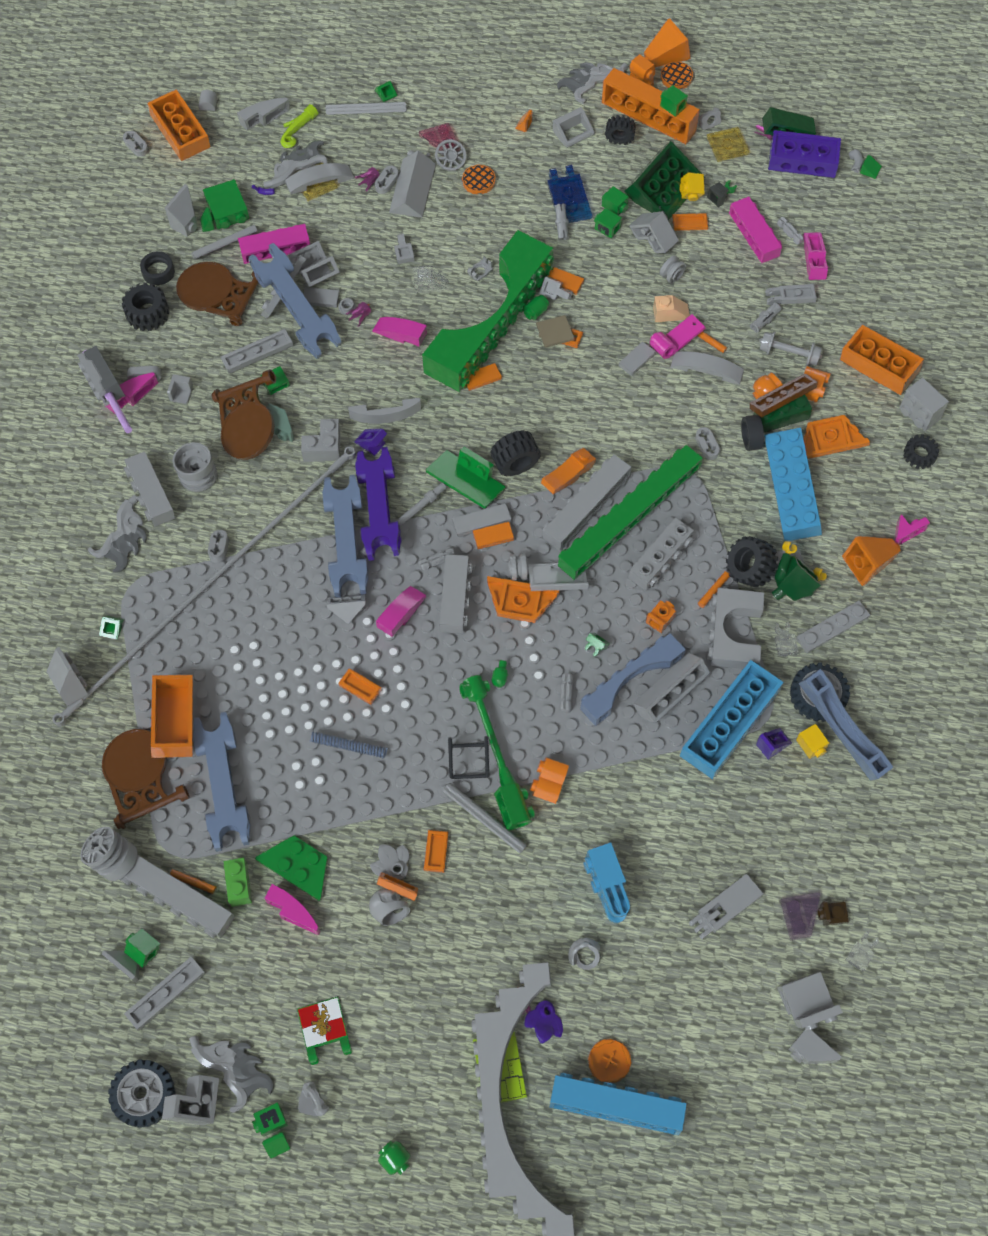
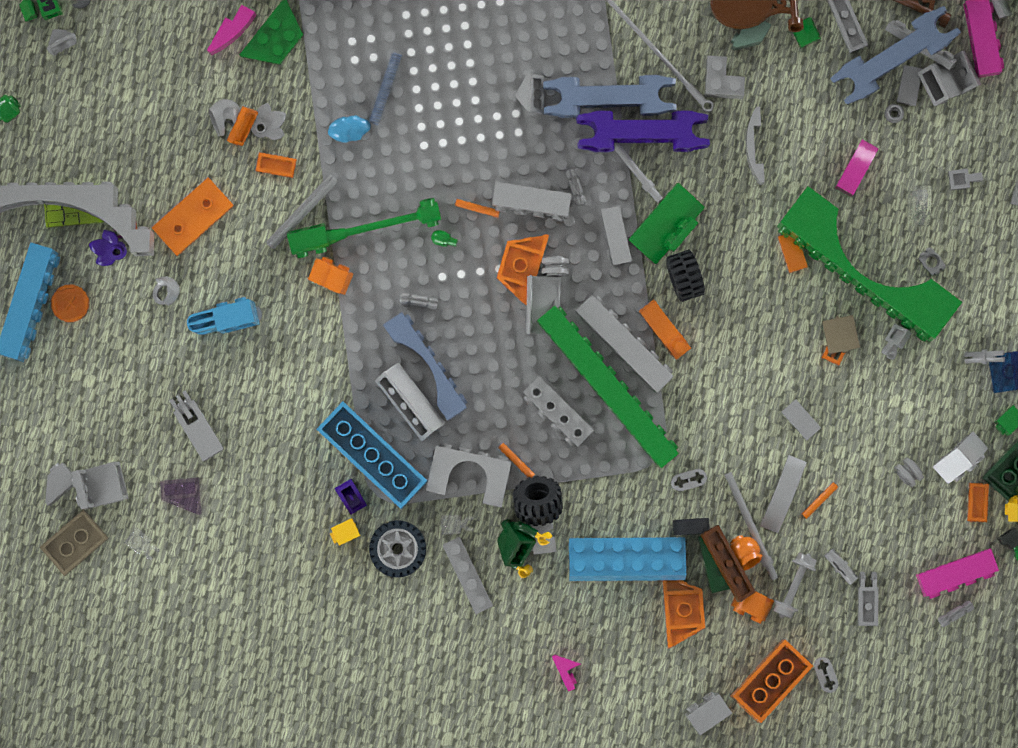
camera: 95 degrees right, 20 degrees up
(323, 1025) = (126, 52): flag -> none
(360, 686) = (445, 103): orange tile -> none
(362, 309) = (887, 127): flat silver piece -> none
(371, 440) = (722, 128): dark purple slope -> none
(392, 777) = (348, 128): none -> dark azure arm
(400, 611) = (520, 147): dark pink slope -> none
(465, 647) = (477, 208): none -> orange piece
(485, 744) = (343, 215): black piece -> none
(493, 535) = (597, 245): orange tile -> none
(499, 933) = (192, 216): none -> orange plate
(536, 307) = (873, 317): green brick -> none
(569, 280) = (909, 353): orange tile -> none
(596, 641) = (467, 336): tile -> none
(607, 223) = (980, 408): green brick -> none
(661, 621) = (483, 401): orange brick -> none
(669, 309) = (858, 464): light nougat slope -> none
(677, 338) = (821, 466): dark pink door -> none
(736, 392) = (766, 559): none -> light grey bar
(815, 256) = (918, 634): dark pink slope -> none
(833, 913) = (180, 524): dark brown bracket -> none
(863, 319) = (821, 676): none -> light grey beam
(864, 752) = (354, 563): sand blue arch -> none
(869, 556) = (537, 627): orange slope -> none
(874, 1028) = (74, 542): none -> dark tan tile
(925, 443) = (665, 711): black tyre -> none

